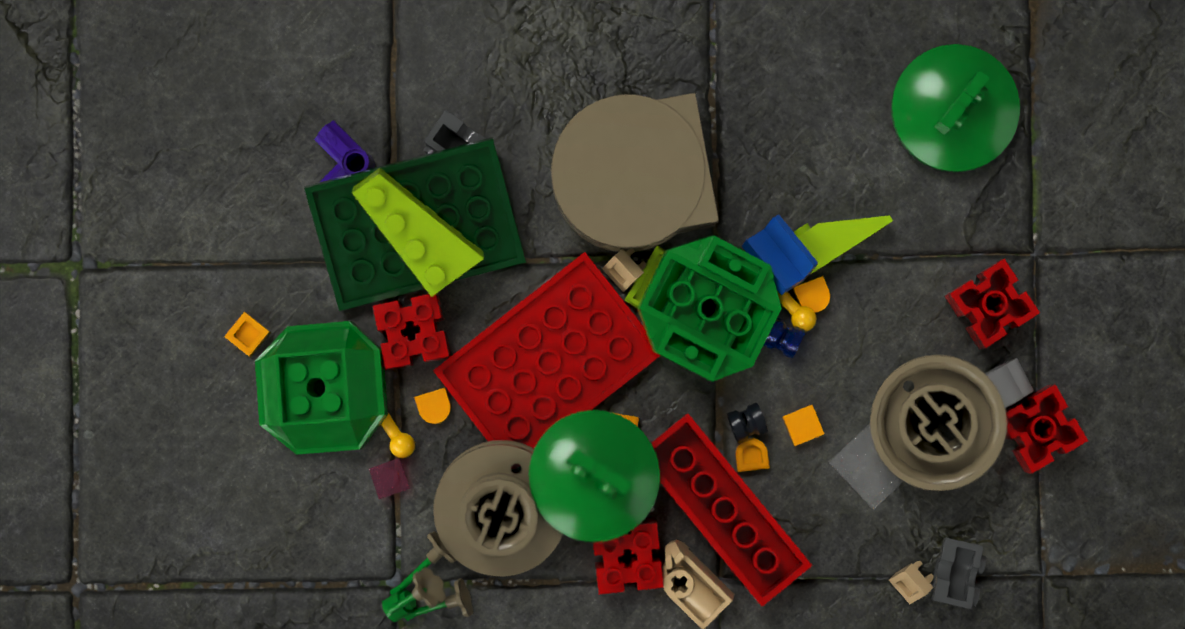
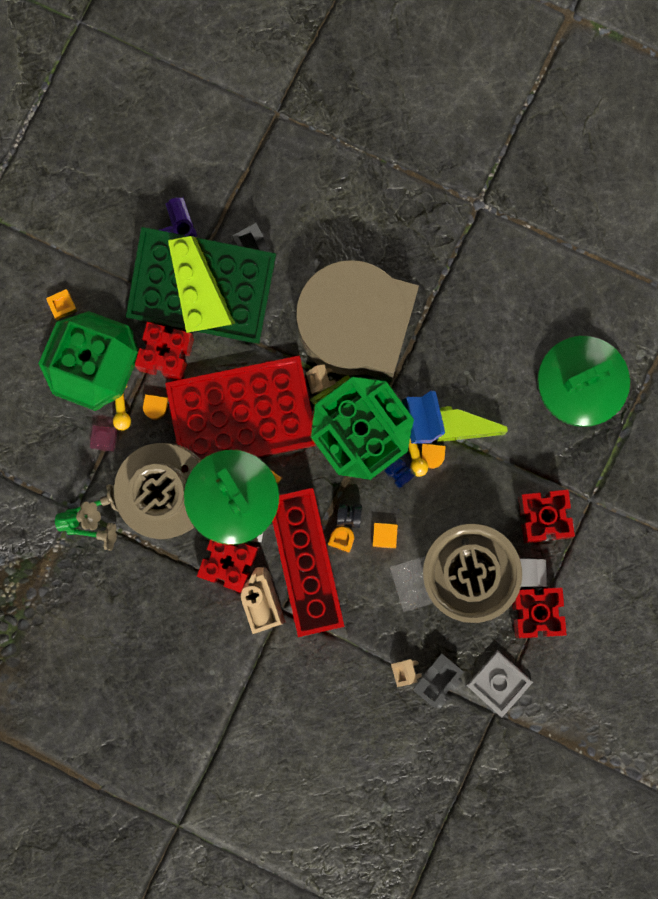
camera: 30 degrees right, 5 degrees down
(1032, 537) = (499, 683): none -> light grey tile

